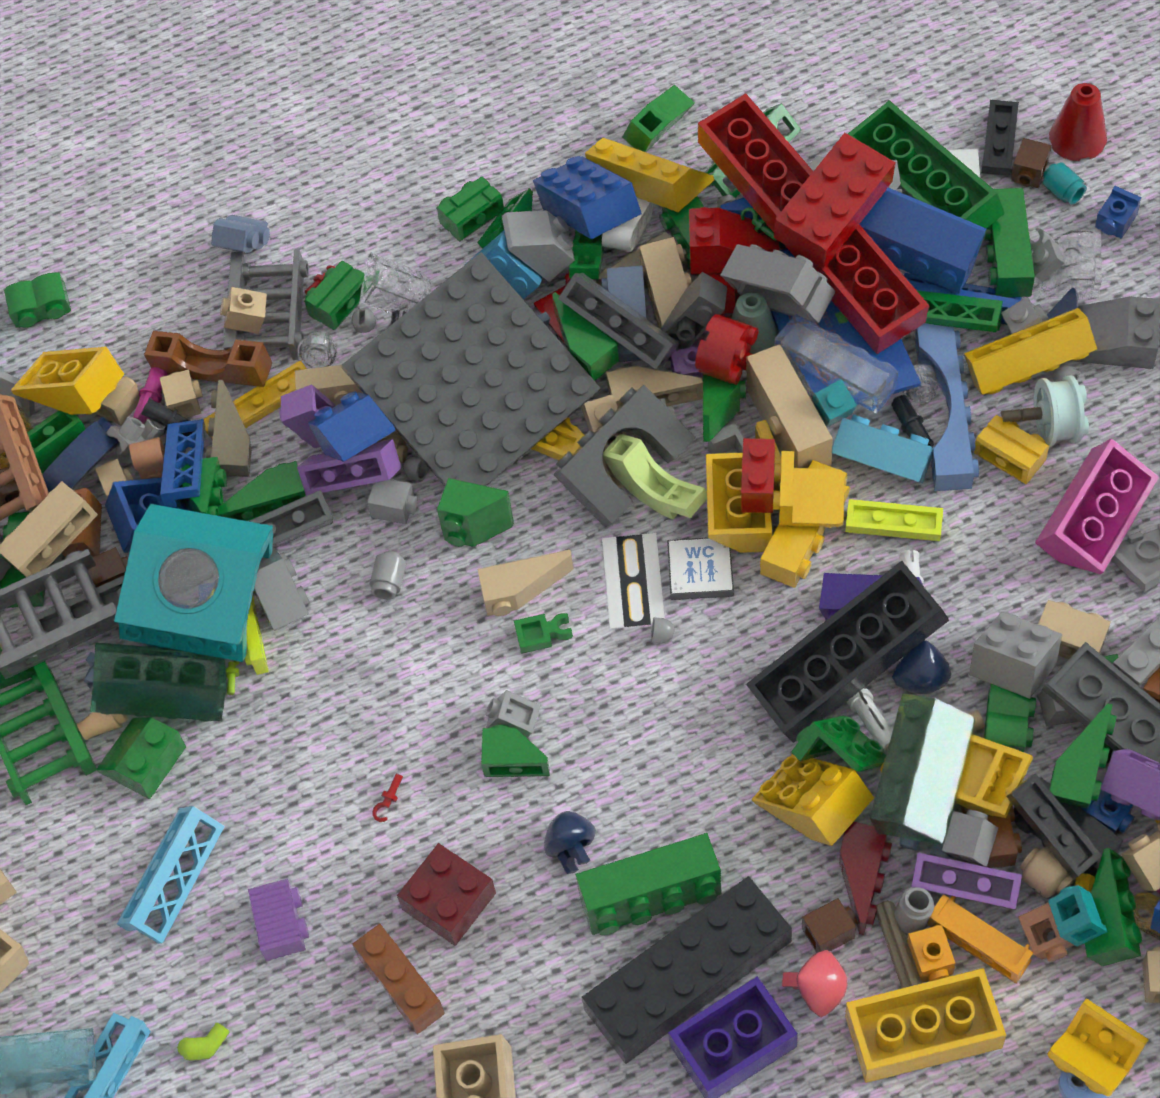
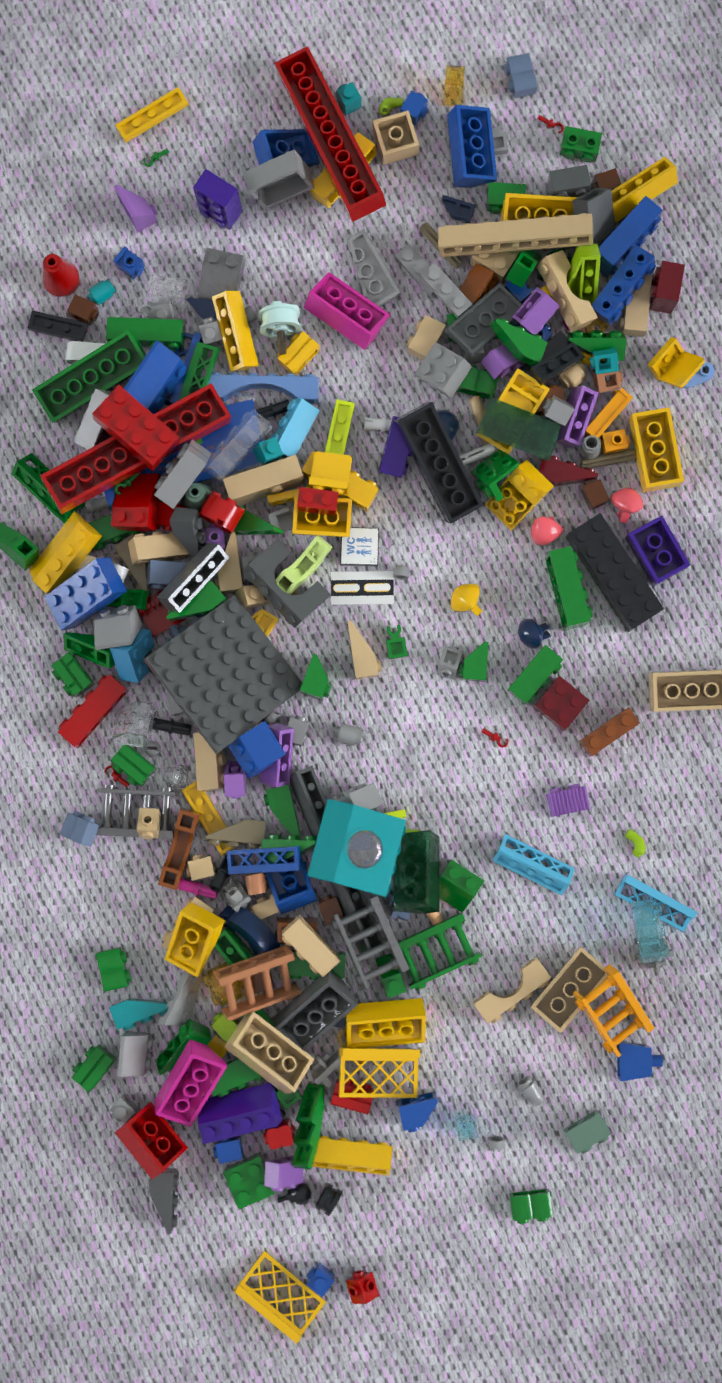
camera: 90 degrees left, 25 degrees up
(416, 237) = (92, 711): none -> red brick
(496, 850) = (535, 675): none -> green brick
(621, 726) = (466, 598): none -> yellow piece
(752, 845) = (545, 530): none -> coral piece
(1046, 740) = (500, 362): none -> medium lavender brick

